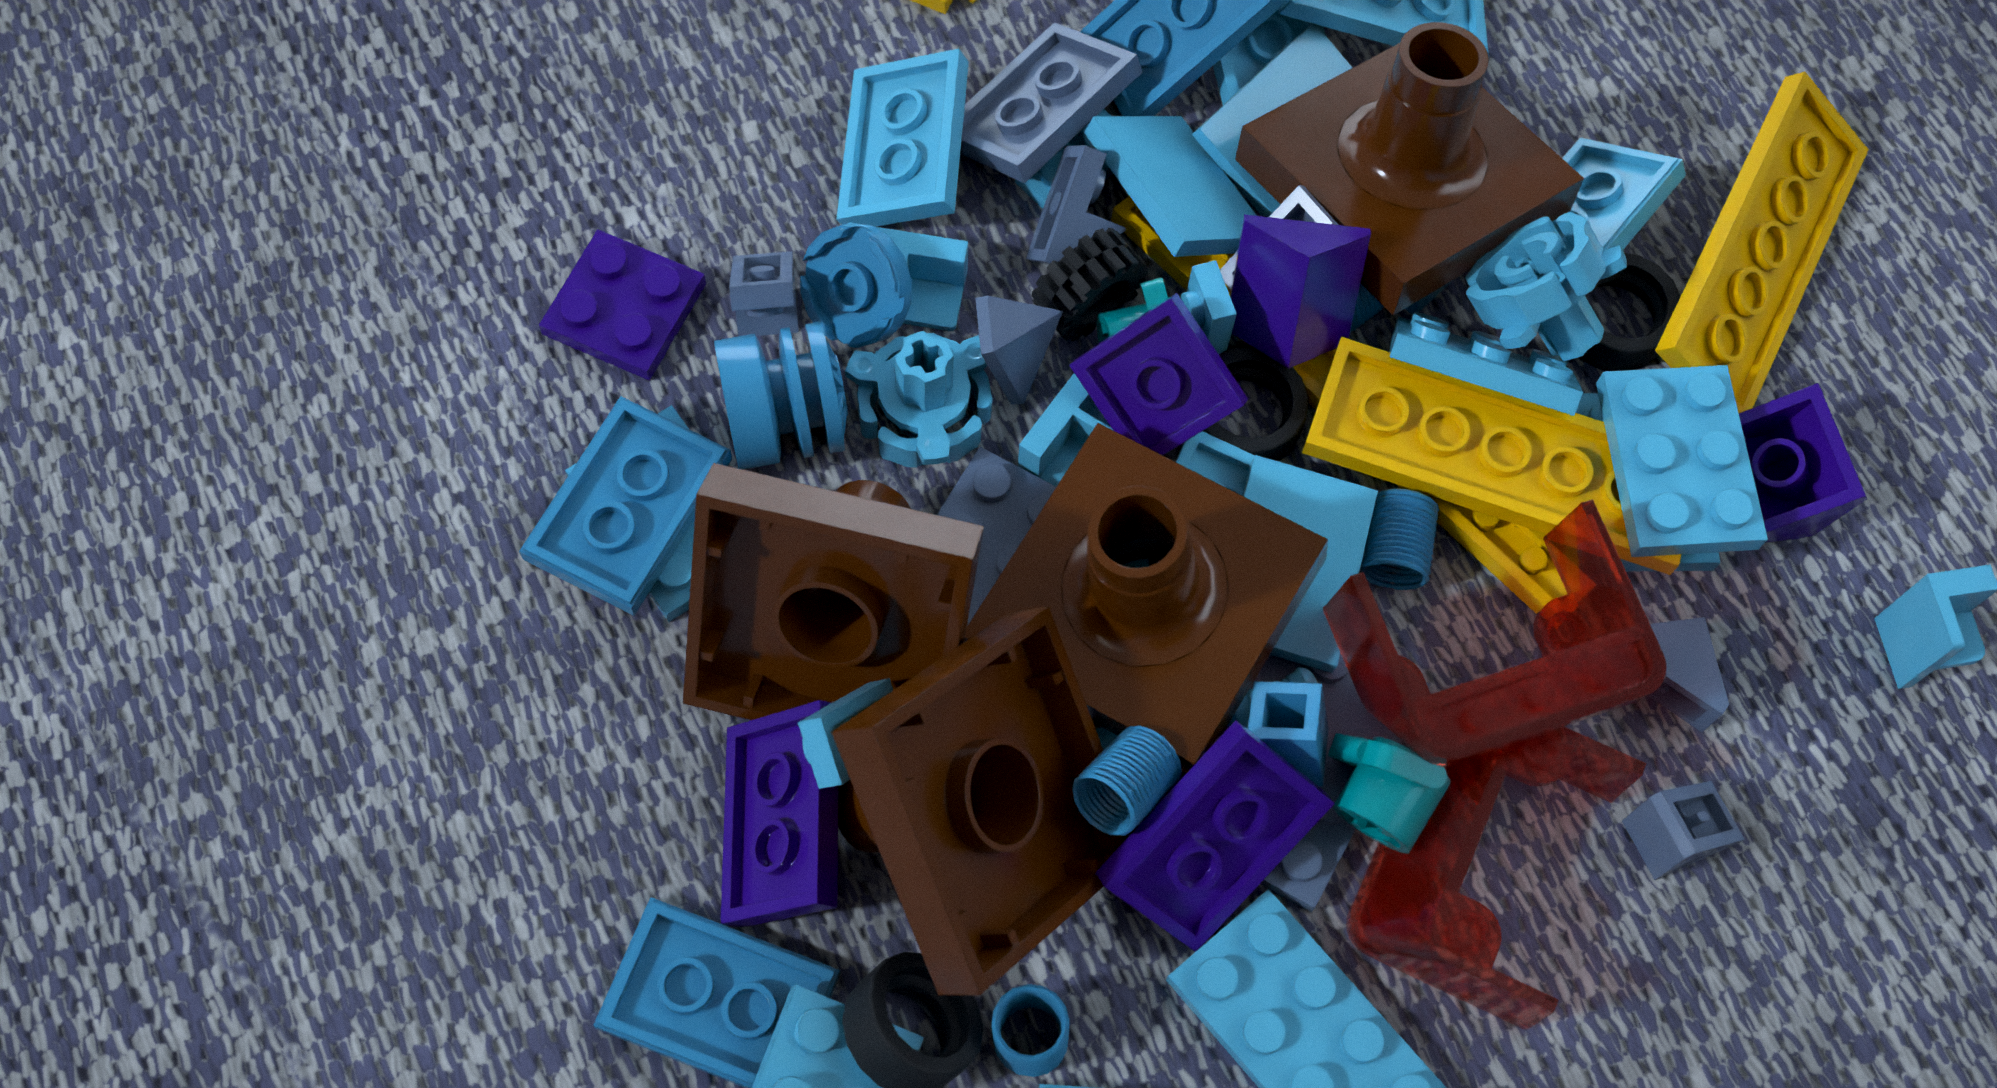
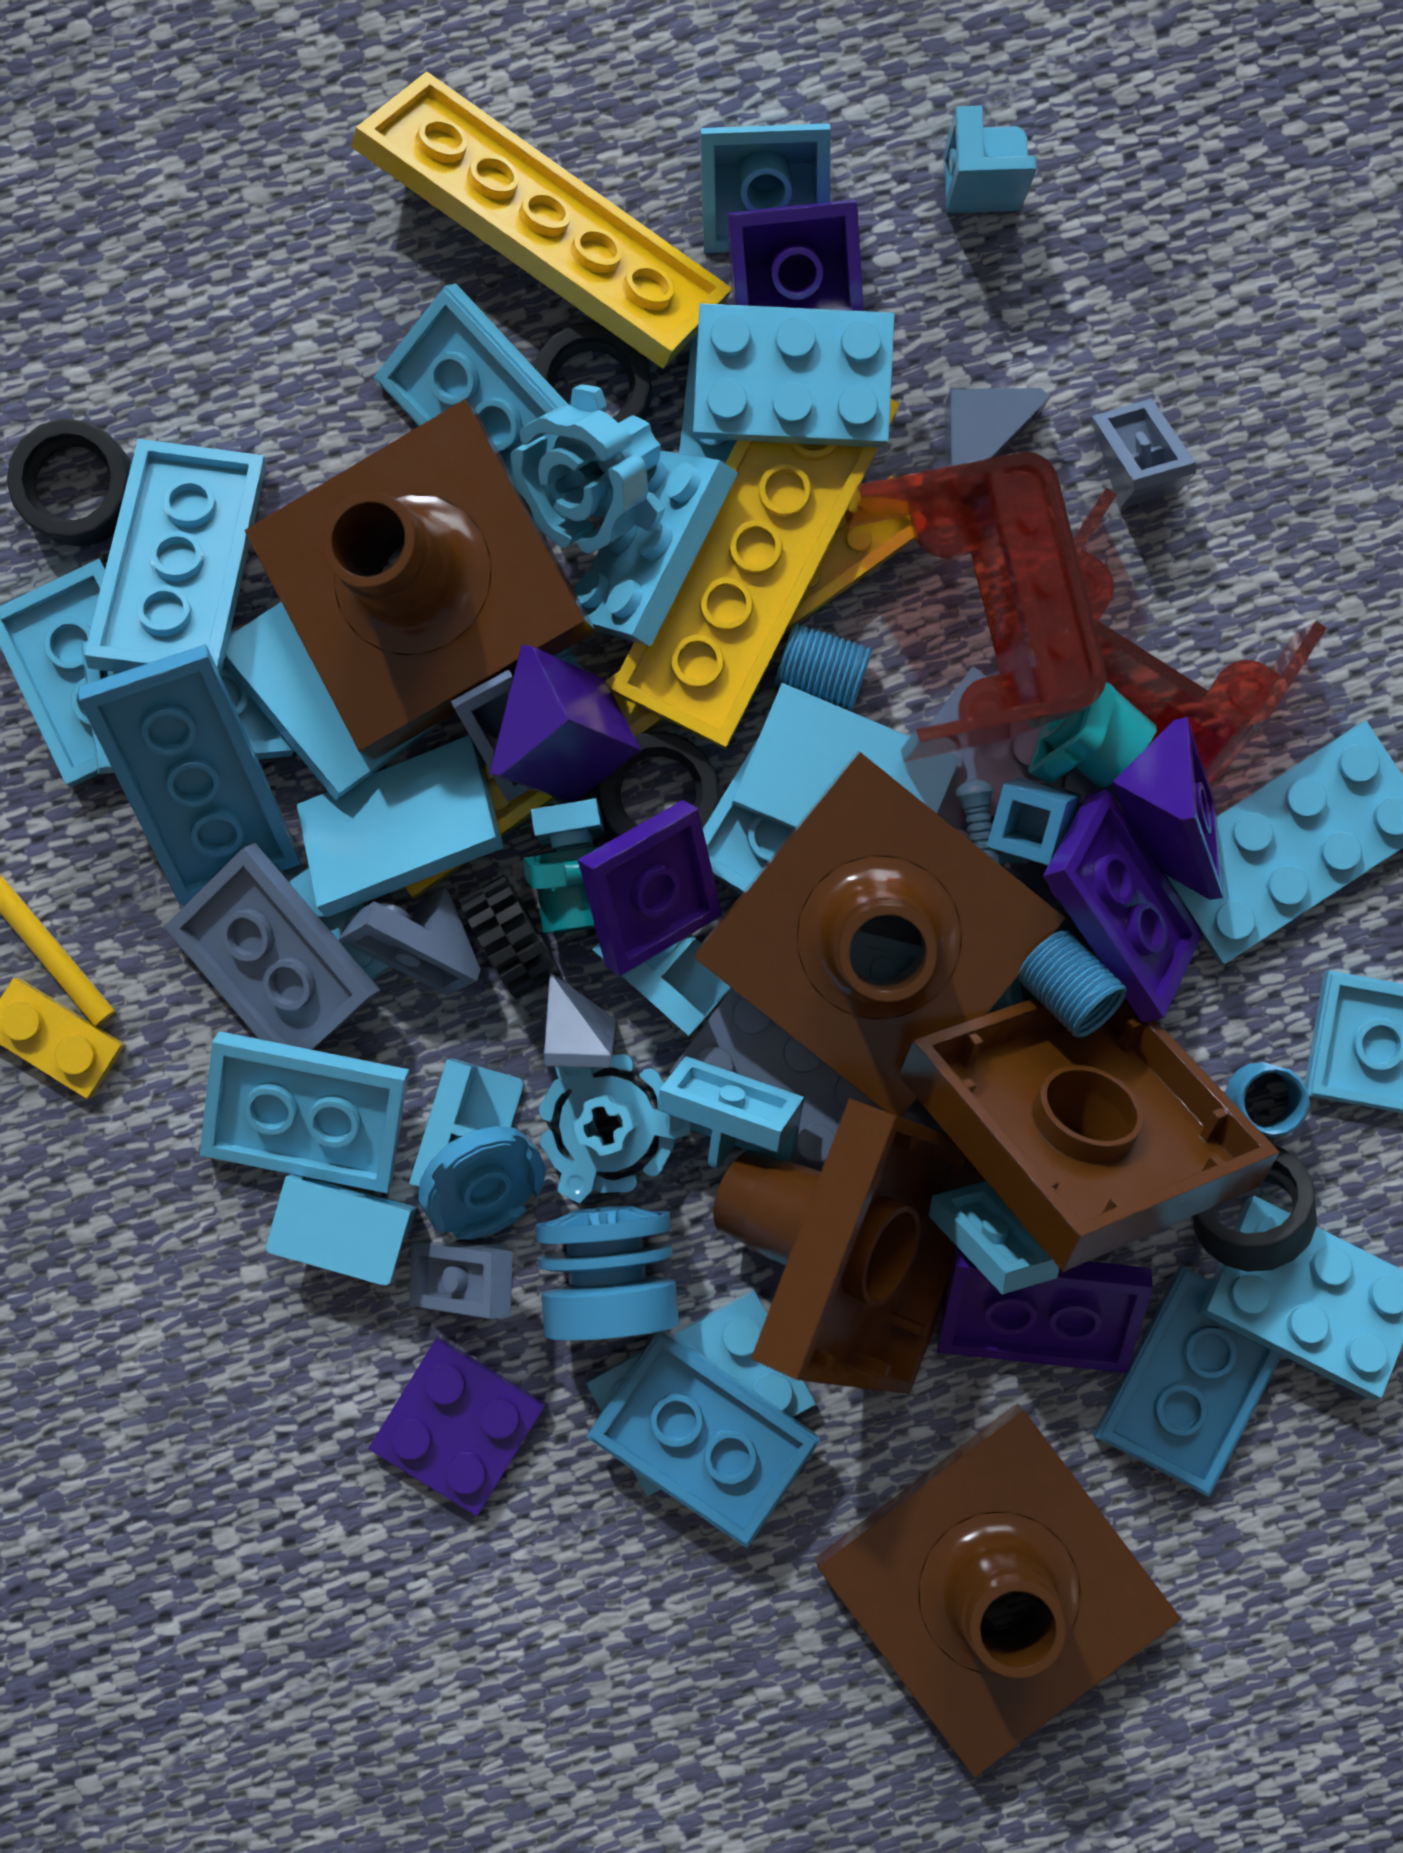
camera: 80 degrees left, 20 degrees up
(517, 856) = (958, 1537): none -> reddish brown piece
(800, 176) = (339, 1229): none -> medium azure panel
(958, 476) = (732, 1110): none -> medium azure panel
(1331, 883) = (1175, 809): none -> dark purple slope
(1878, 427) = (760, 170): none -> medium azure slope

